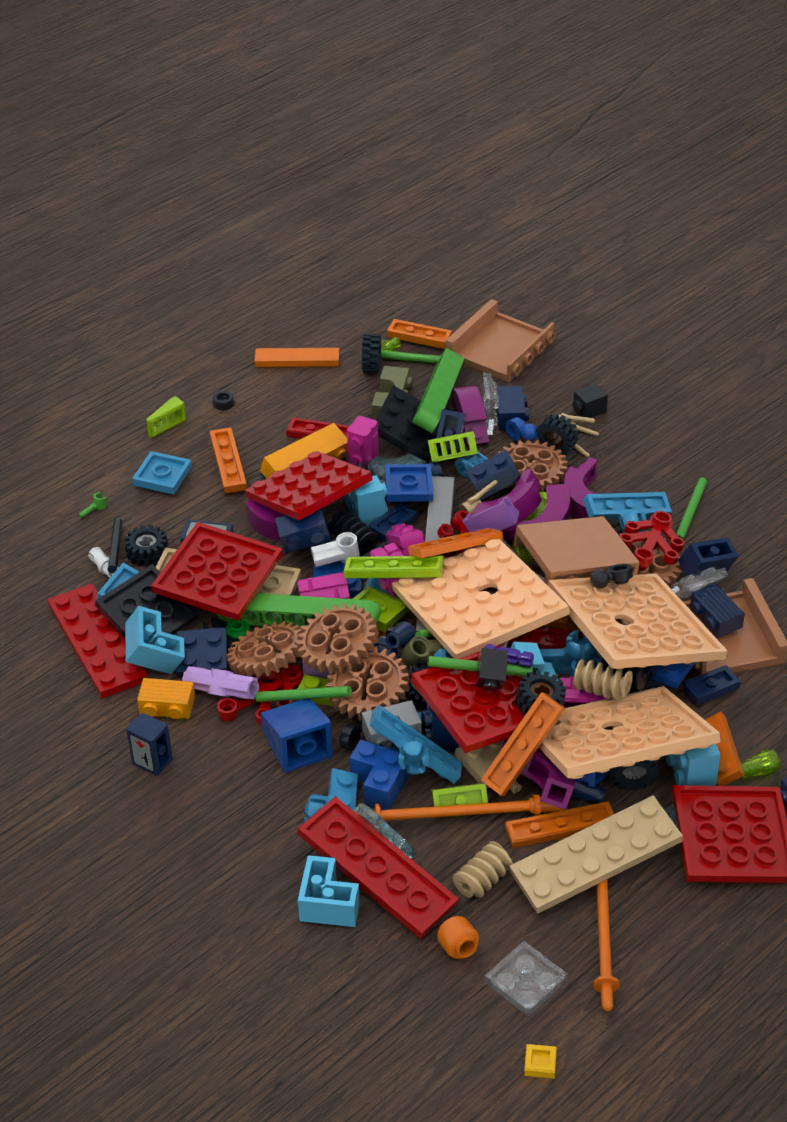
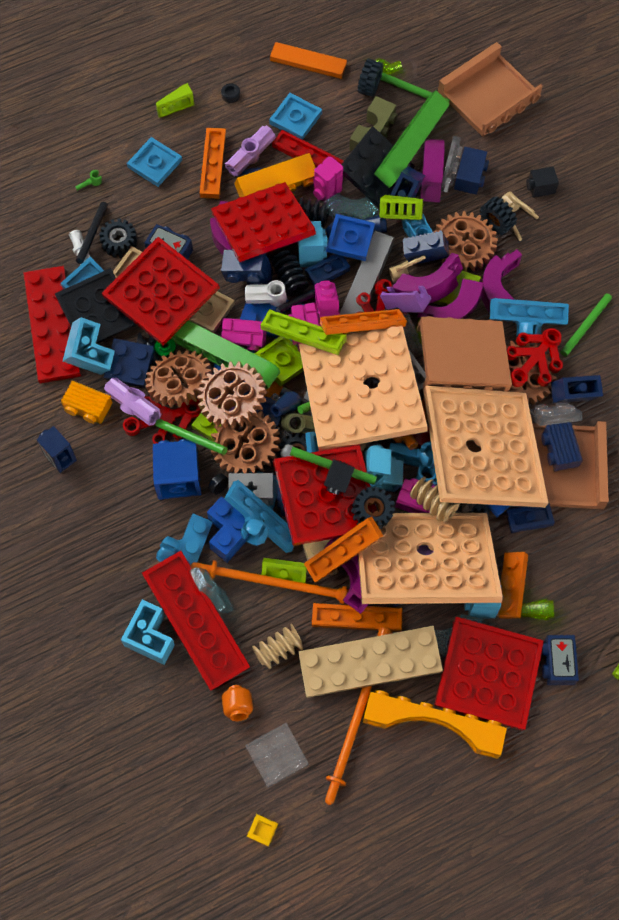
camera: 15 degrees right, 25 degrees up
(265, 440) = (250, 151): none -> lavender piece
(303, 403) = (295, 116): none -> dark azure plate
(418, 333) = (421, 61): orange plate -> none
(515, 656) = (359, 462): dark purple axle -> none
(519, 429) = (469, 198): blue plate -> none
(545, 638) = (409, 440): none -> orange arm
(618, 573) = (488, 393): black plate -> none
(750, 896) = (481, 736): none -> light orange arch

